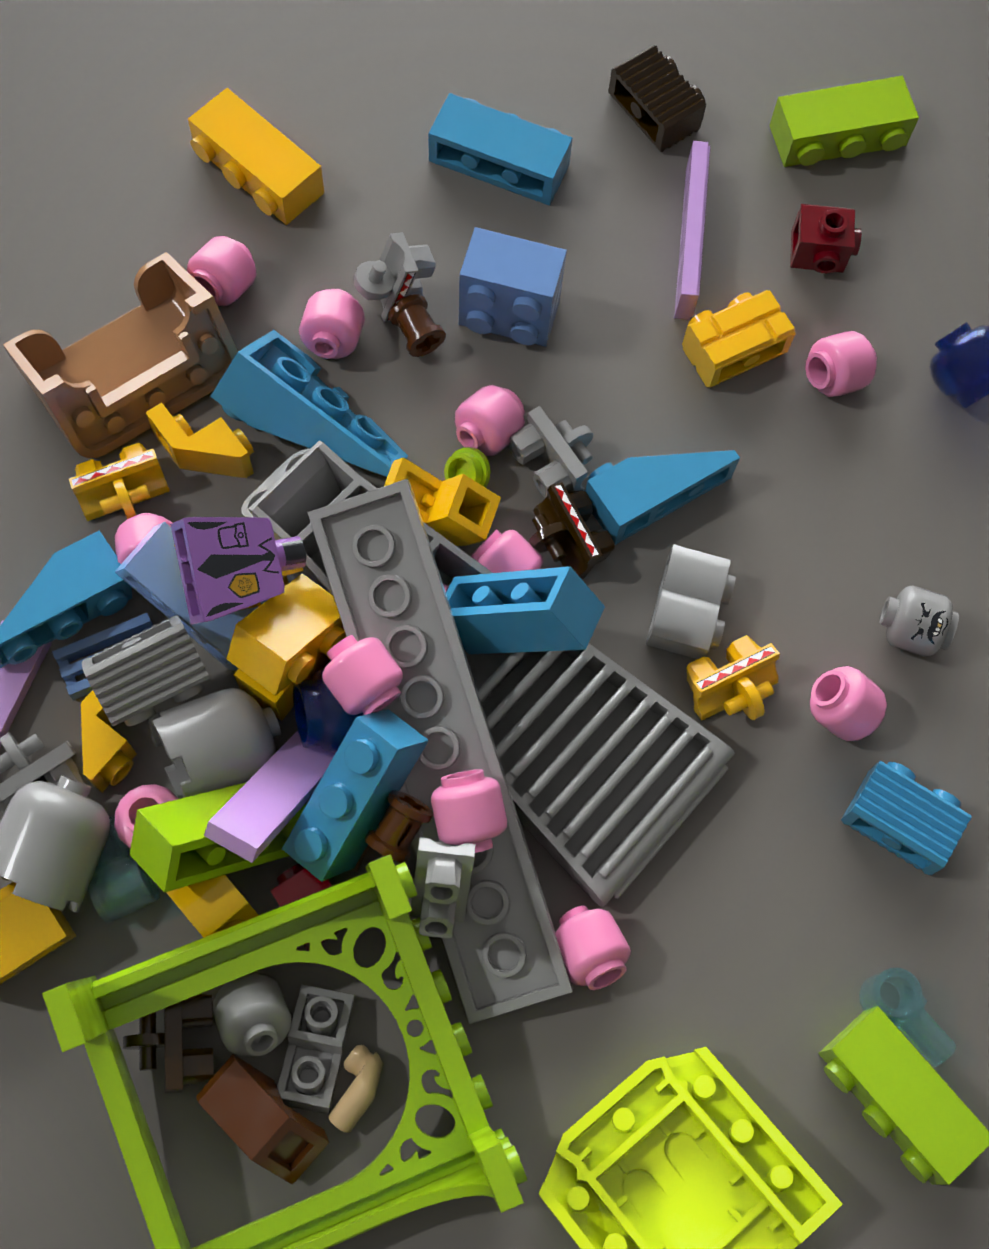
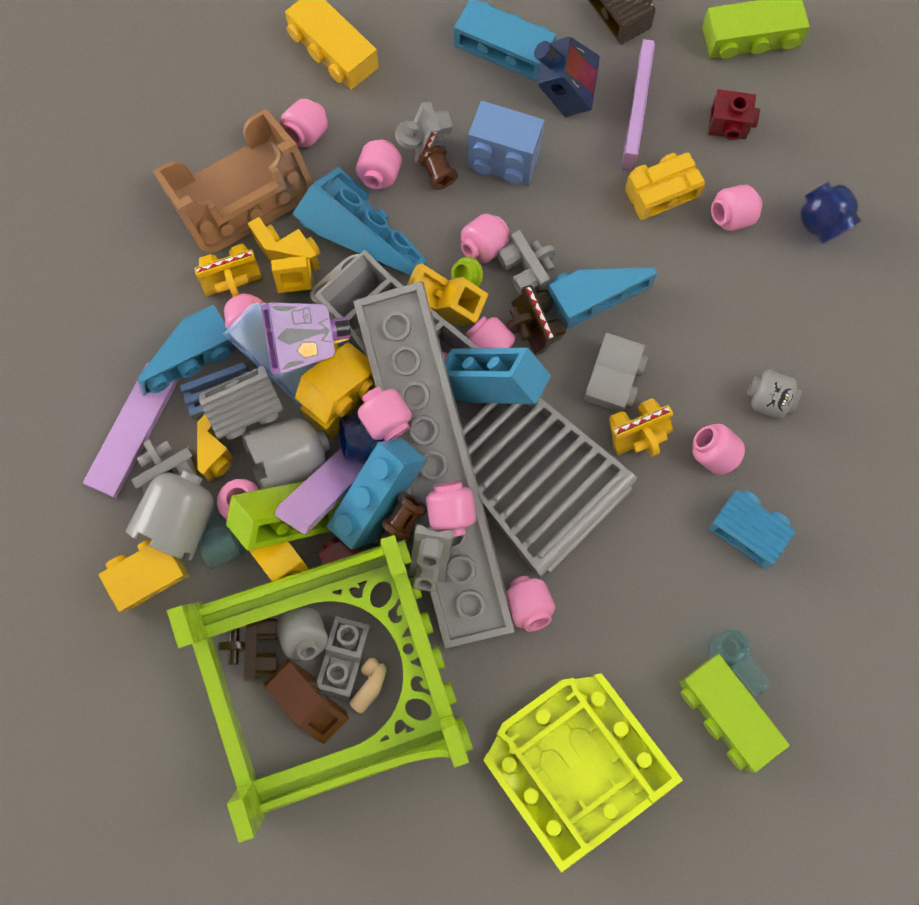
camera: 10 degrees right, 5 degrees up
(214, 480) = (292, 274): none -> yellow slope
(592, 191) = (567, 74): none -> dark blue torso

